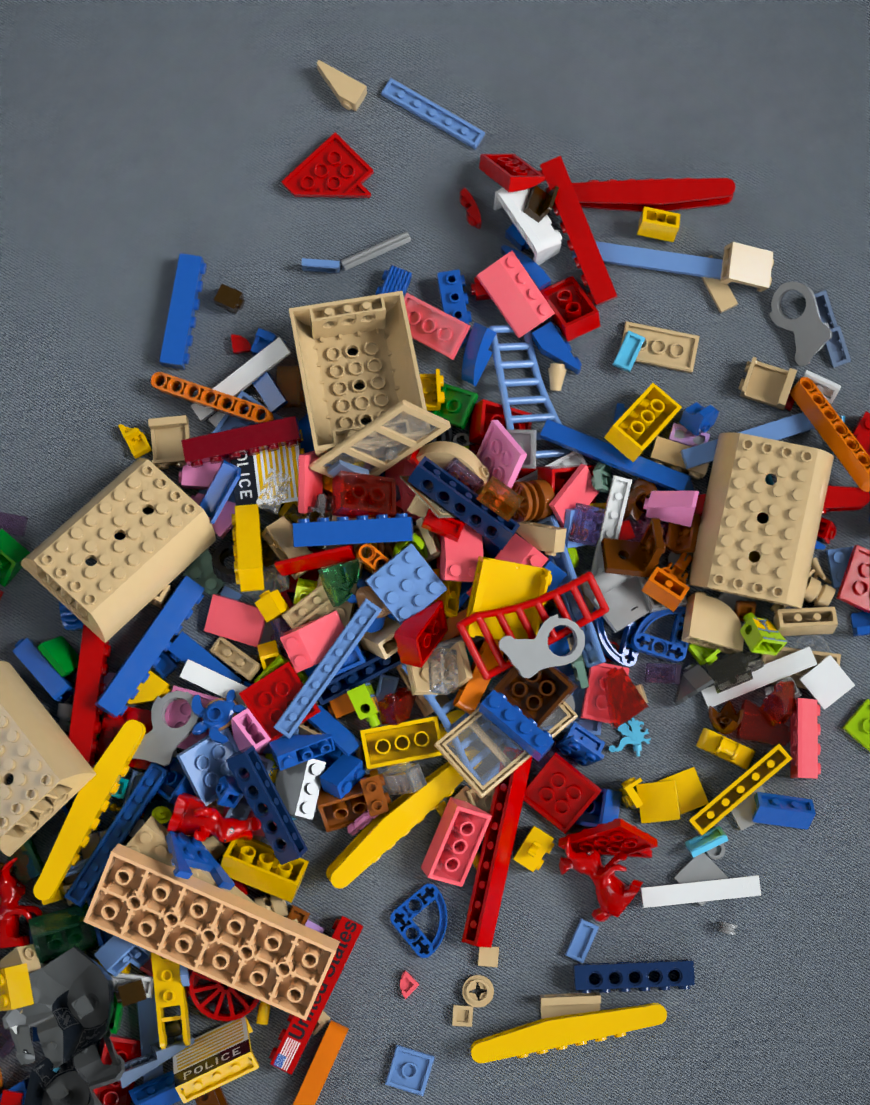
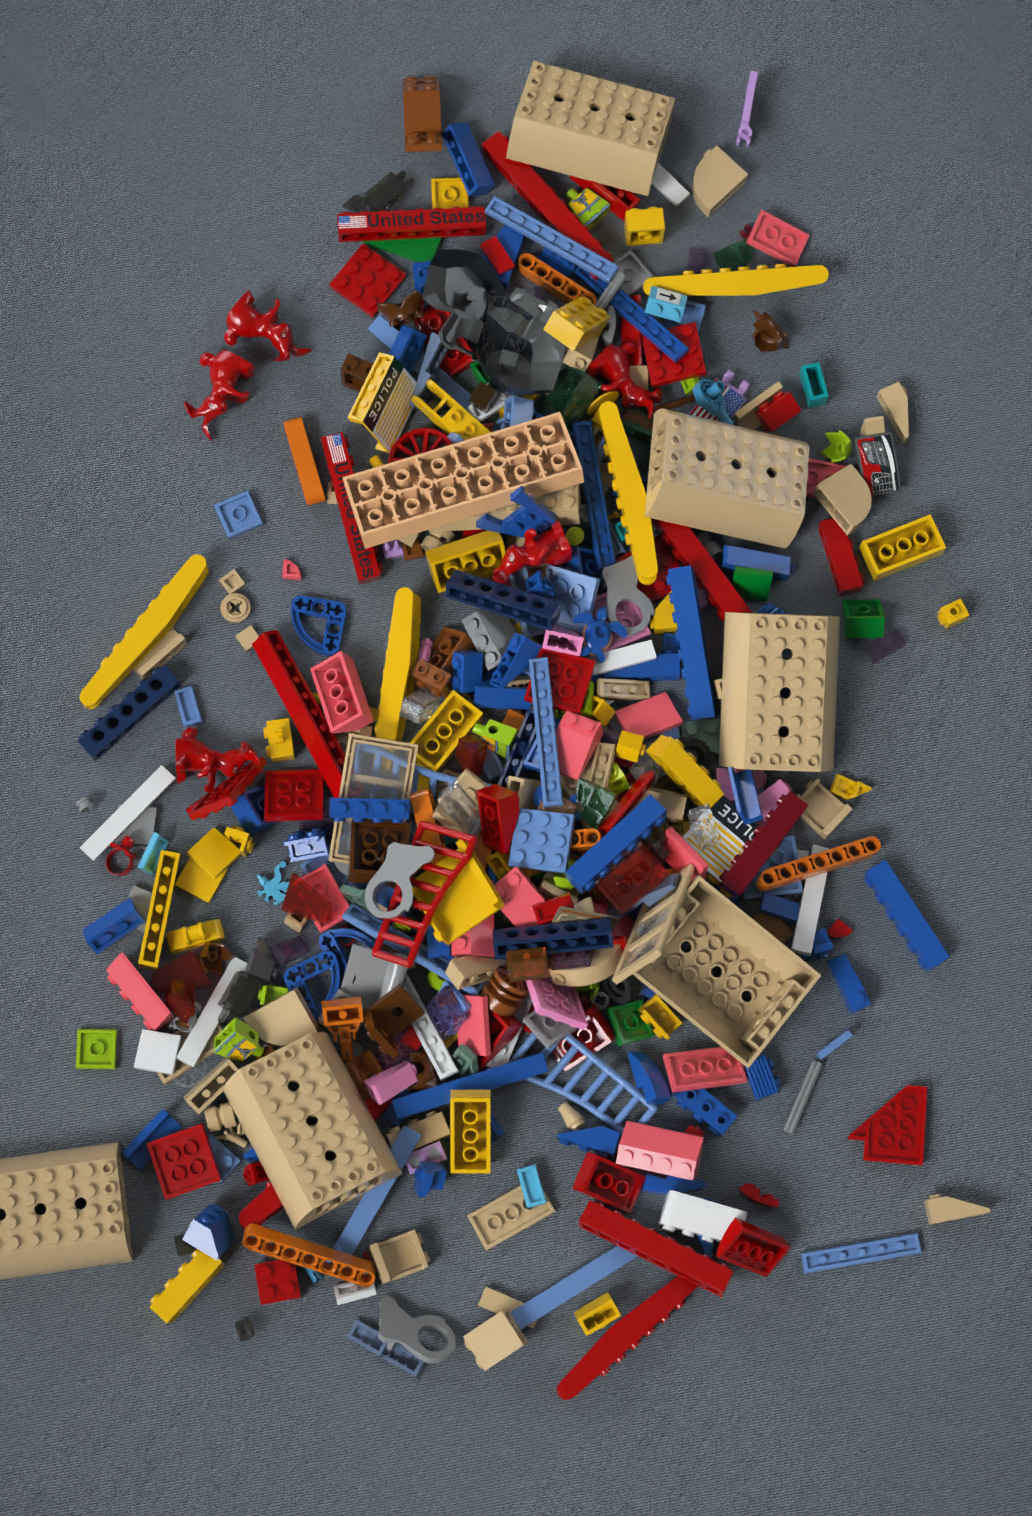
camera: 135 degrees right, 5 degrees down
(39, 907) = (595, 405): none -> yellow piece
(229, 299) = (879, 957): dark brown brick -> none
(269, 298) = (848, 984): none -> blue slope
(540, 203) = (704, 1235): dark brown panel -> none
(725, 865) = (127, 843): none -> red piece

